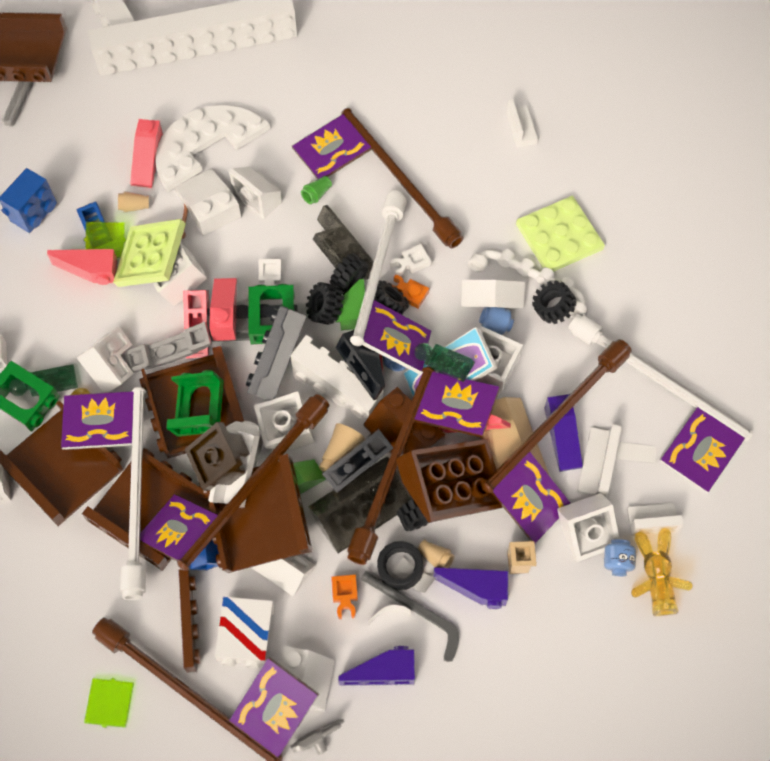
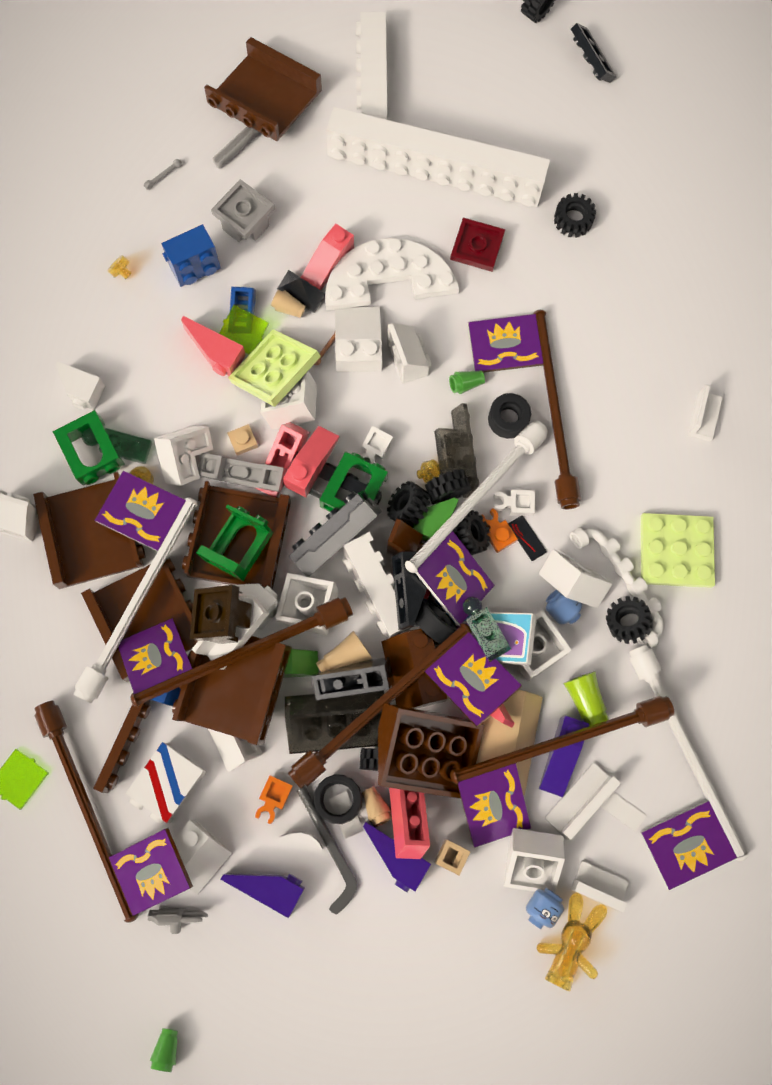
camera: 25 degrees right, 10 degrees up
(53, 147) = (243, 212): none -> light grey panel
(138, 184) = (302, 291): none -> black slope
(153, 325) = (242, 439): none -> tan plate
(265, 84) = (477, 244): none -> dark red plate
(325, 271) = (428, 470): none -> clear yellow tile
(331, 36) = (577, 204): none -> black tyre
(333, 330) = (404, 539): none -> reddish brown slope
(366, 187) = (512, 402): none -> black tyre
(400, 380) = (435, 621): none -> black tyre
(436, 285) = (527, 538): none -> black sticker
(469, 544) = (409, 823): none -> coral brick
(555, 377) = (587, 698): none -> lime plant

